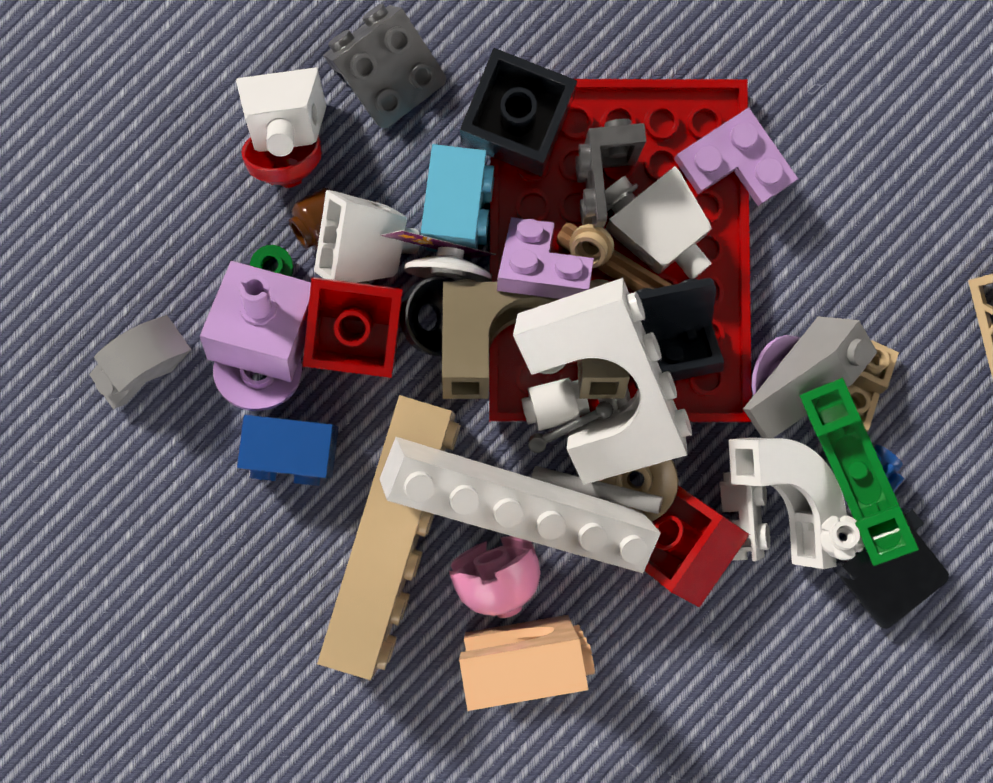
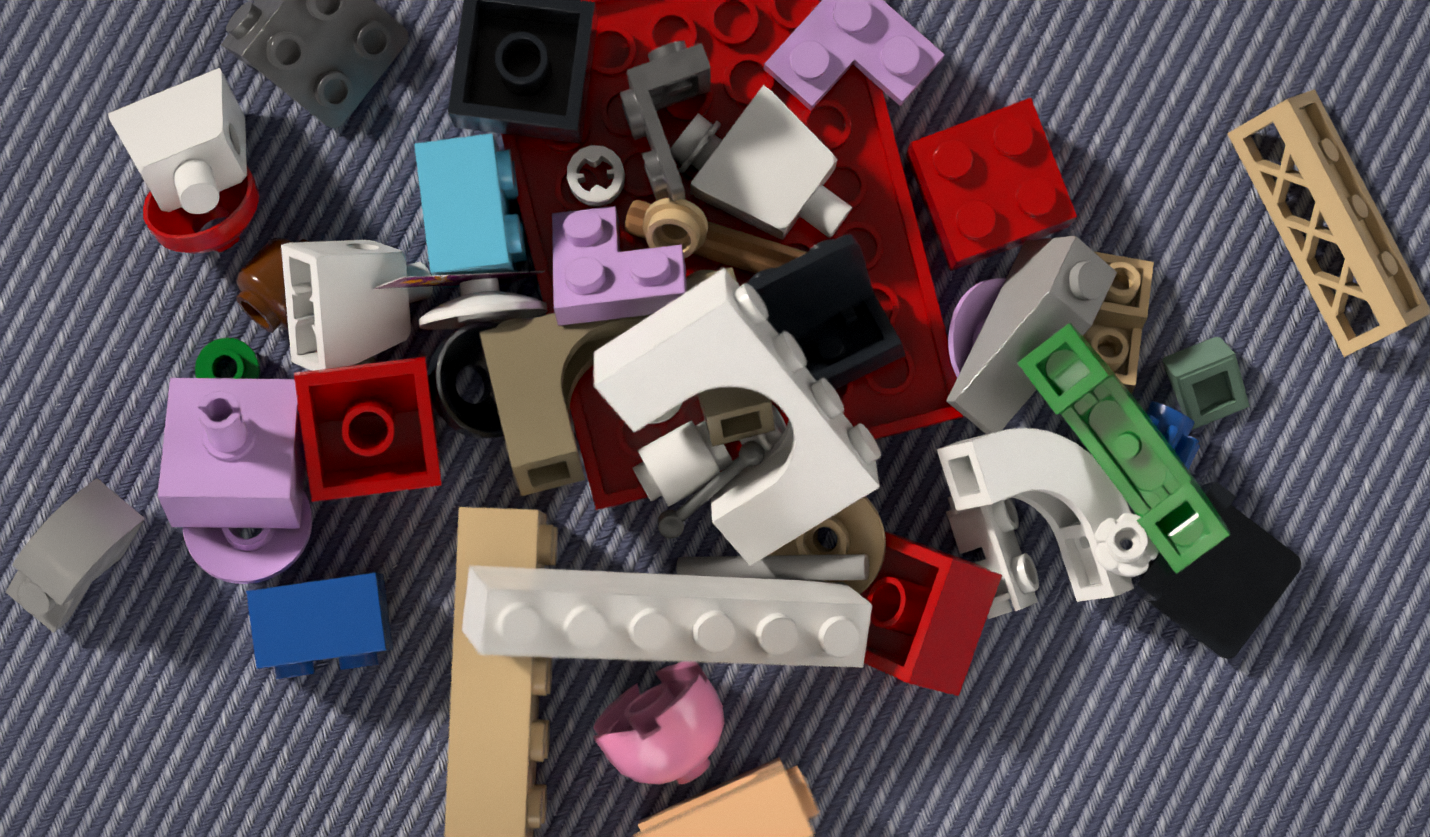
camera: 15 degrees left, 0 degrees up
(547, 186) = (593, 156): none -> white bush
(805, 272) = (990, 184): none -> red brick
(914, 439) = (1206, 381): none -> sand green slope

